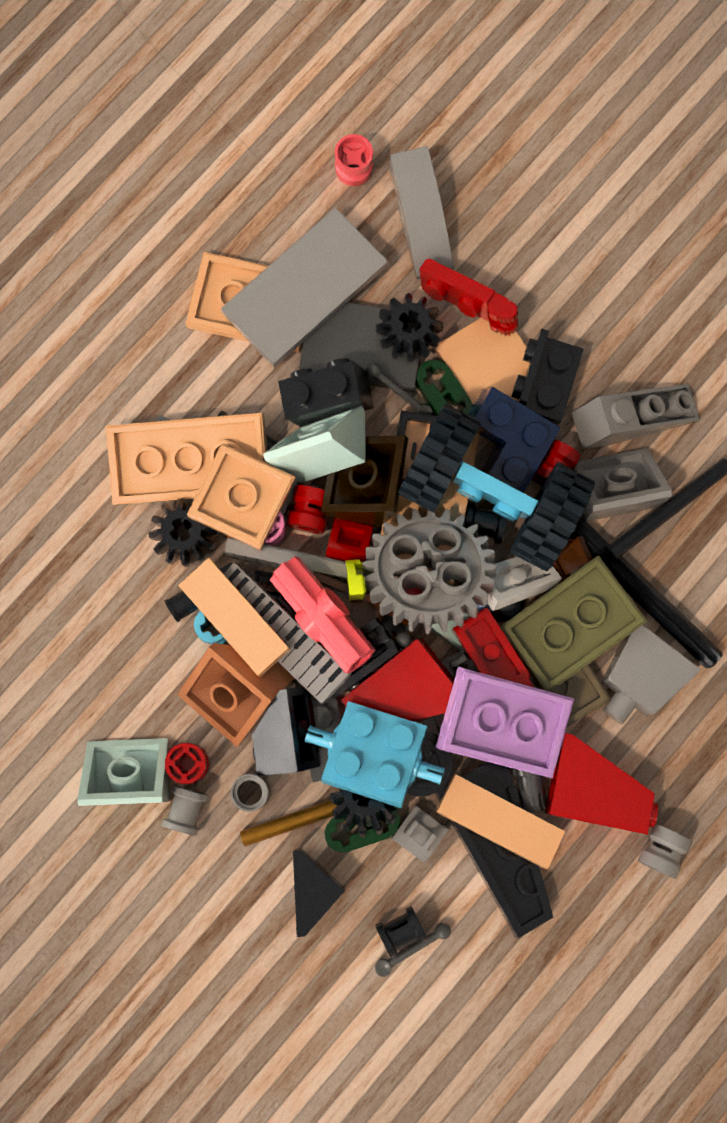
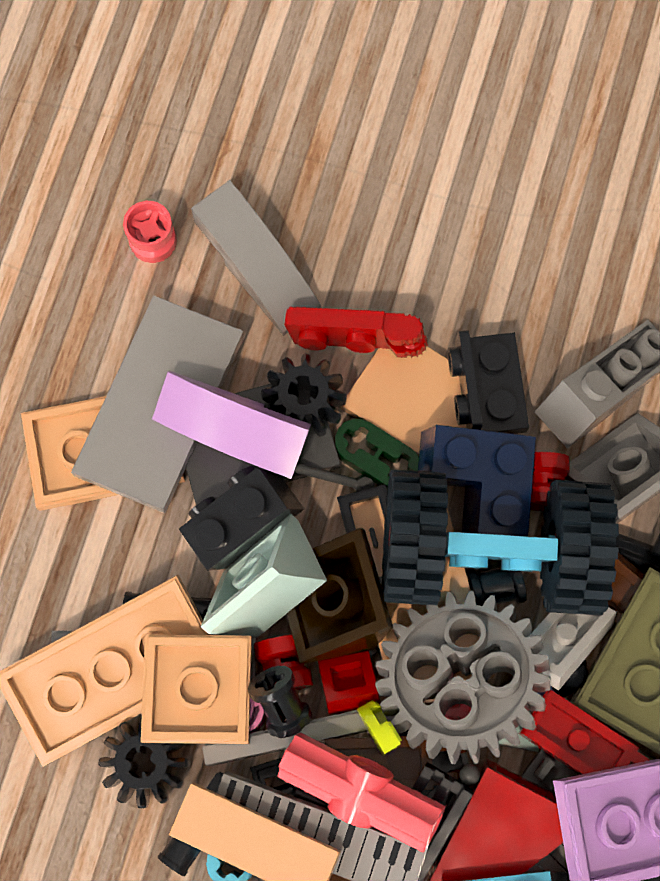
camera: 20 degrees left, 5 degrees down
(294, 530) = (280, 701): none -> black bush
(348, 323) = (231, 424): none -> lavender slope

